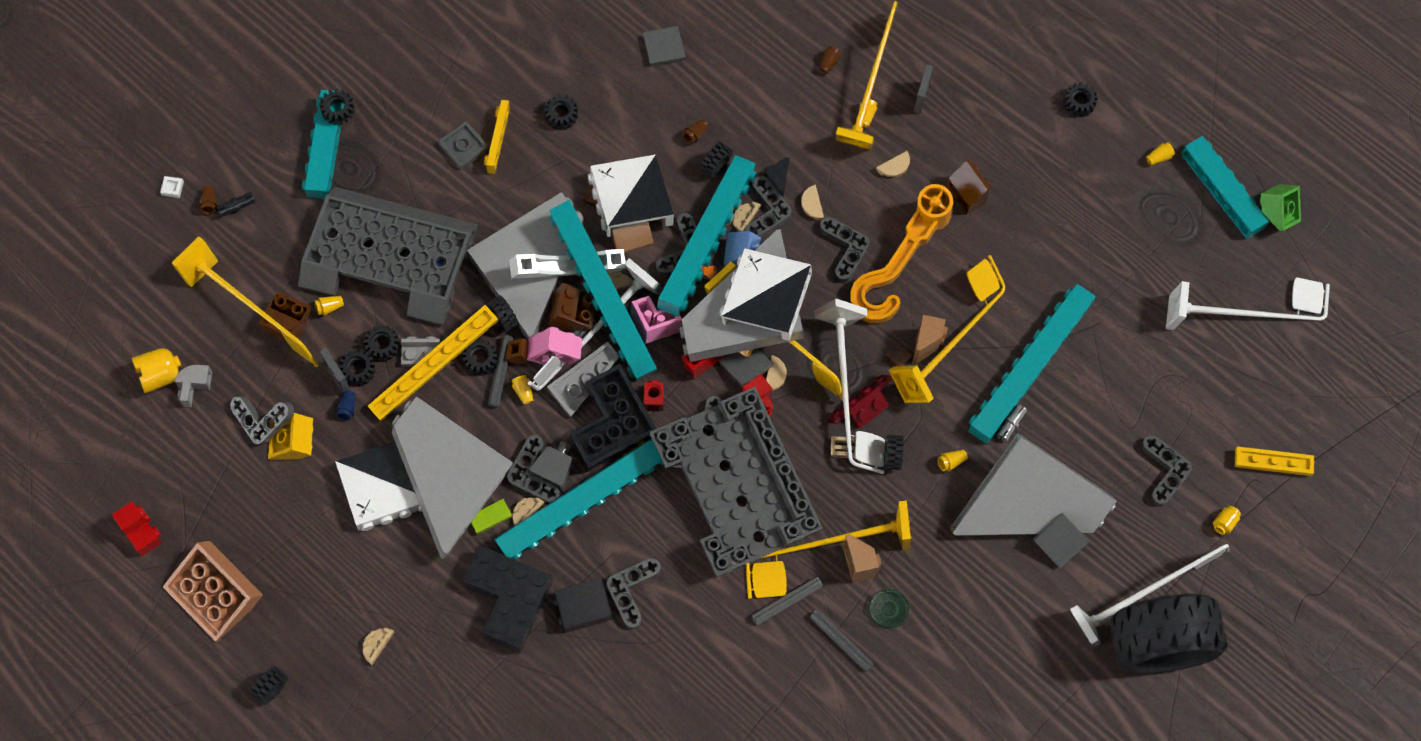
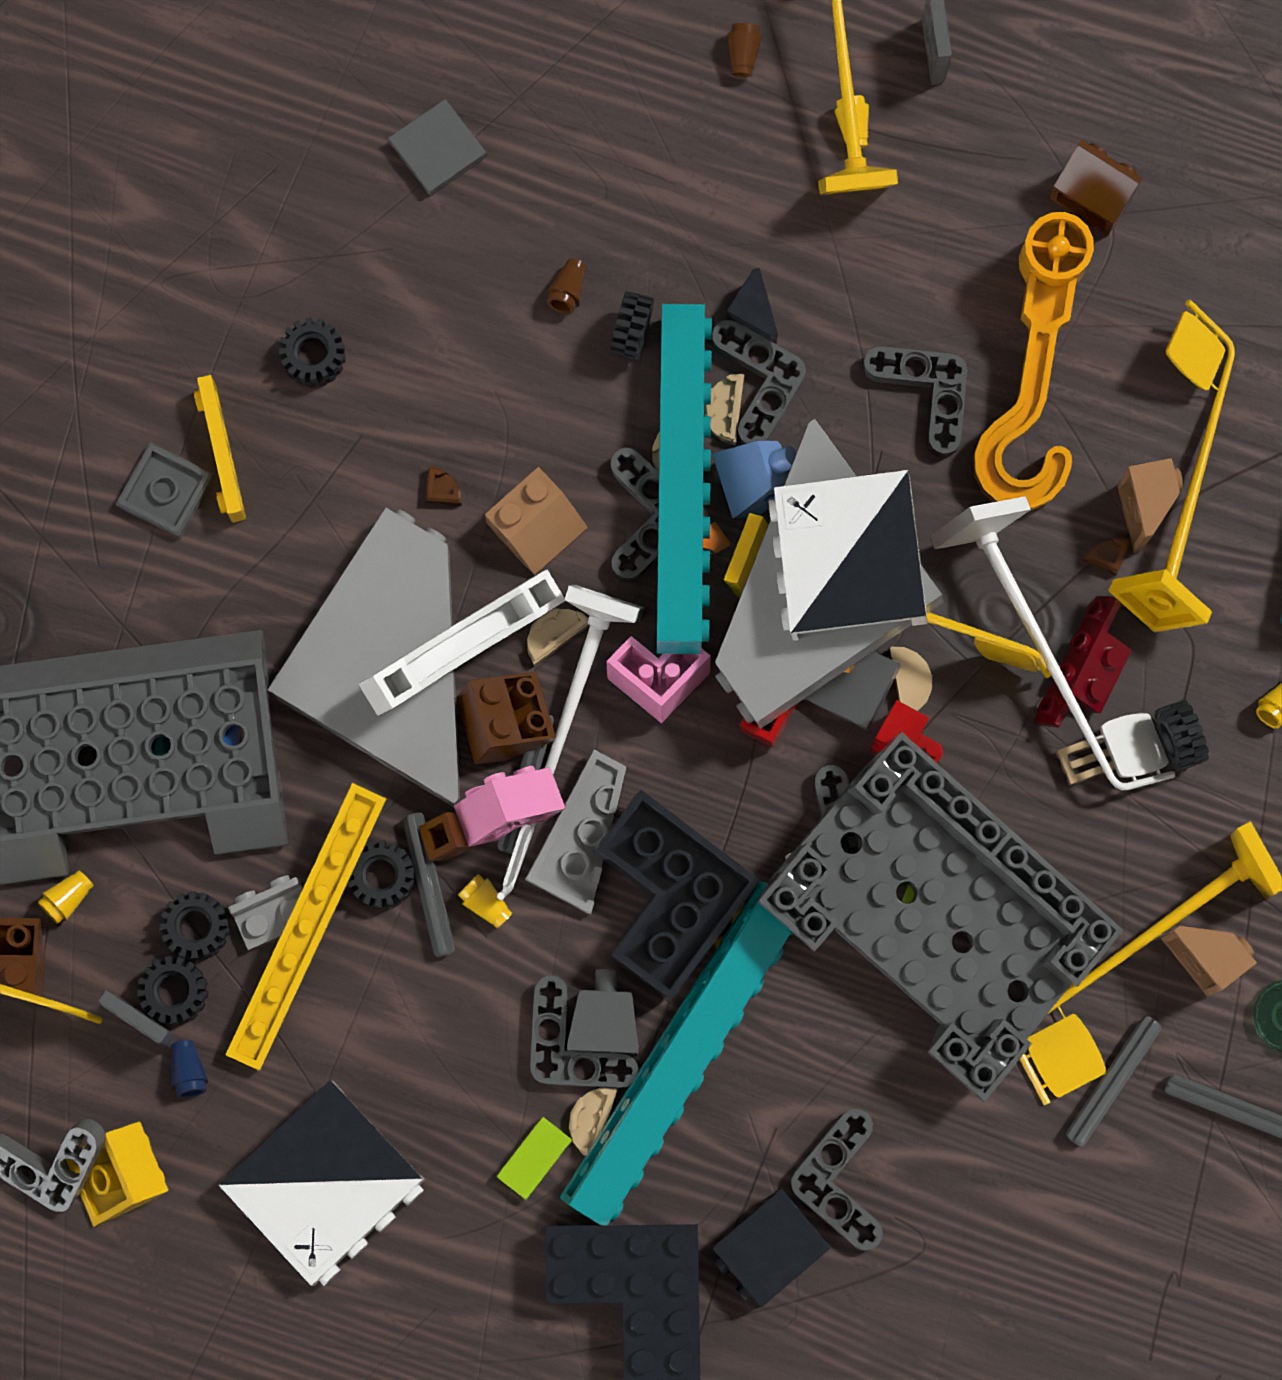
camera: 20 degrees left, 10 degrees up
(447, 469) = (427, 1114): light grey slope -> none
(503, 312) = (386, 780): black tyre -> none
(604, 292) = (547, 663): teal brick -> none
(630, 192) = (509, 457): panel -> none
(650, 403) = (718, 829): red brick -> none
(811, 204) = (831, 333): tan tile -> none
(895, 167) = (947, 201): tan tile -> none

